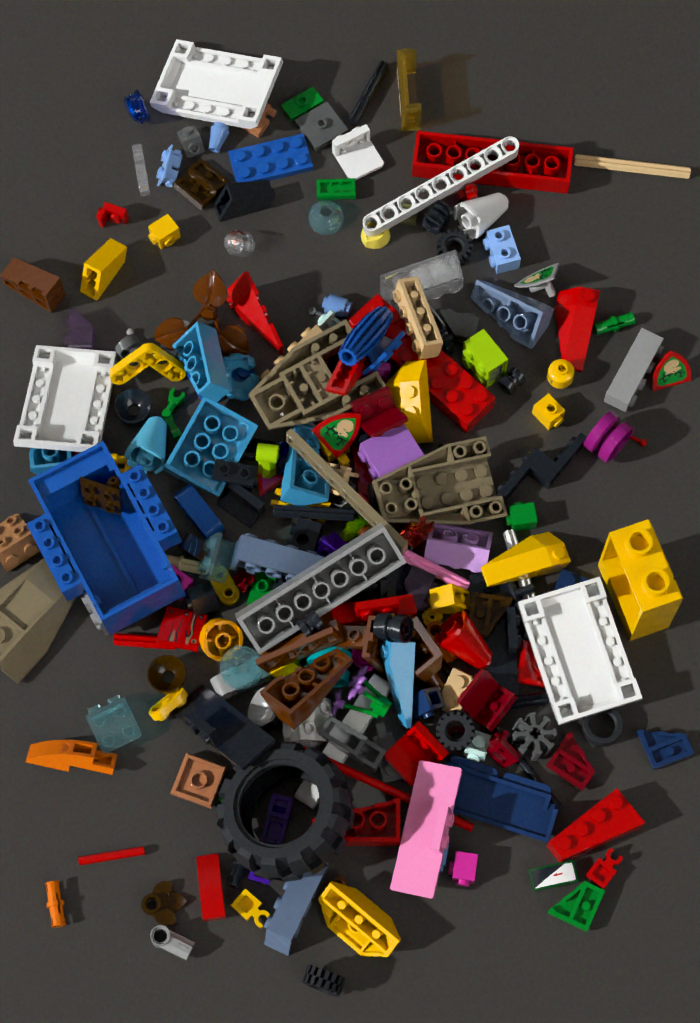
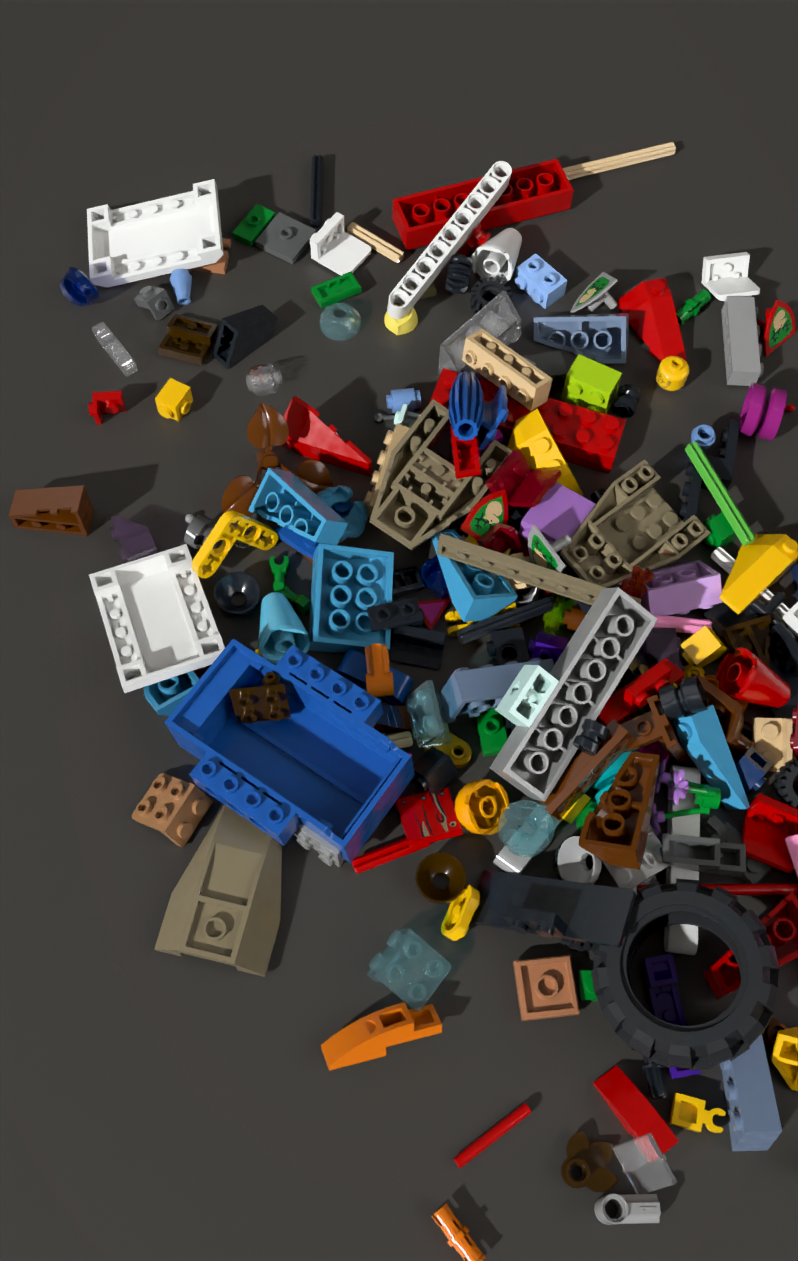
camera: 30 degrees left, 5 degrees down
(102, 268) = (124, 464): yellow slope -> none
(166, 173) = (142, 327): light blue hinge -> none
(195, 919) = (644, 1164): none -> clear piece
(196, 515) = (378, 677): none -> orange piece
(244, 580) = (462, 727): dark red plate -> none
(267, 459) = (422, 582): lime piece -> none
(271, 159) = (251, 287): blue plate -> none
(281, 574) = (527, 695): none -> light aqua brick
(338, 451) = (500, 538): none -> dark red bracket
(365, 476) = (545, 554): none -> shield
(390, 159) = (376, 242): none -> tan axle
(409, 113) = (369, 187): clear yellow panel -> none
(531, 488) = (720, 493): none -> bright green axle
(548, 438) = (704, 436): none -> medium blue cone
(549, 412) = (683, 415): yellow brick -> none
(658, 311) = (728, 276): none -> white bracket

